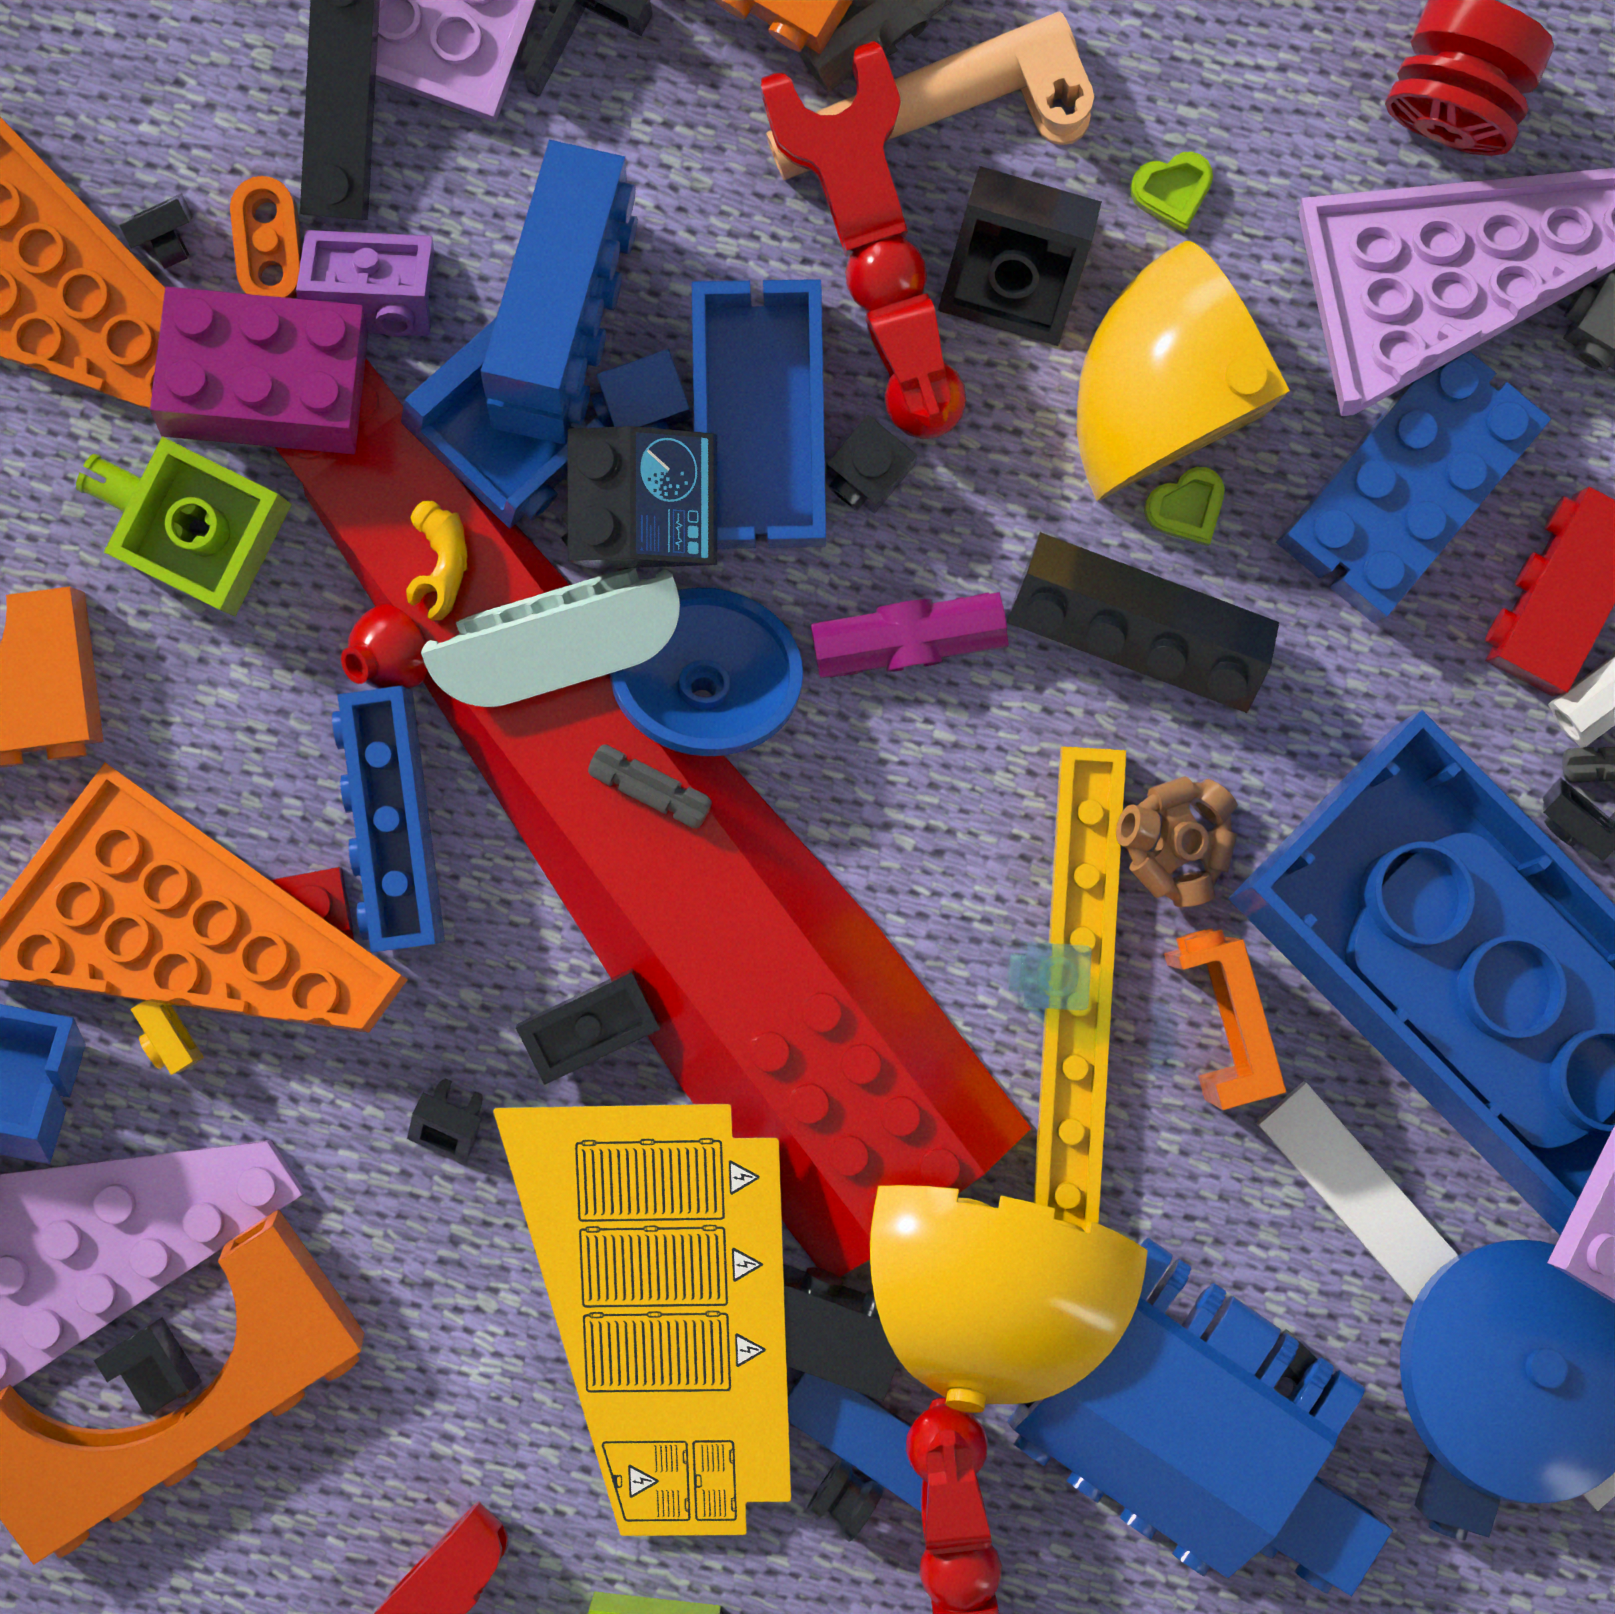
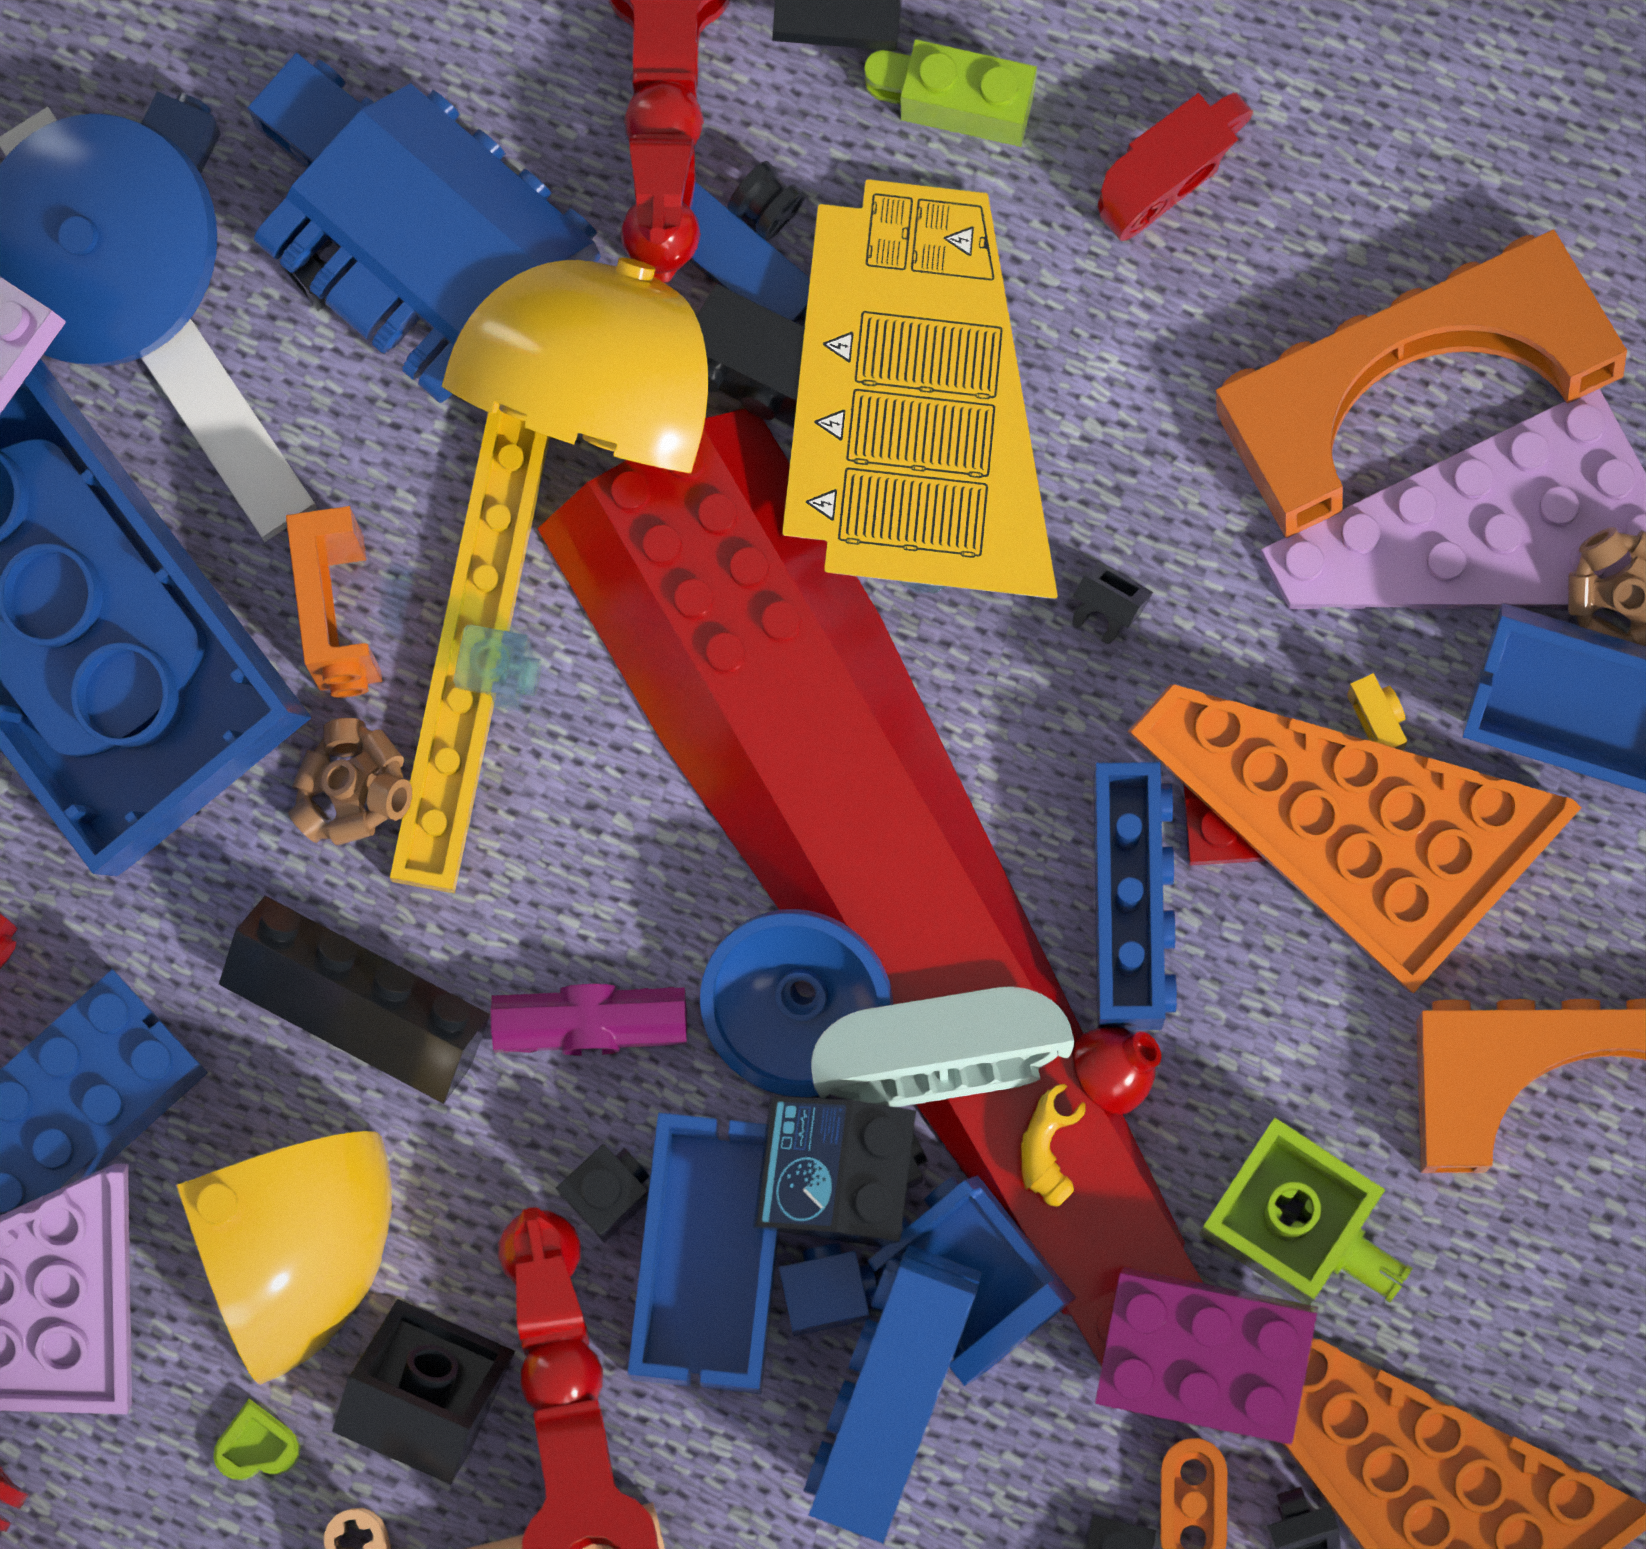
camera: 165 degrees left, 10 degrees down
(151, 1367) = (1427, 404): black panel -> none
(372, 270) = (1094, 1451): medium lavender bracket -> none
(588, 1026) = (957, 672): black plate -> none
(649, 786) = (865, 890): dark grey axle -> none
(1188, 507) = (291, 1116): lime tile -> none

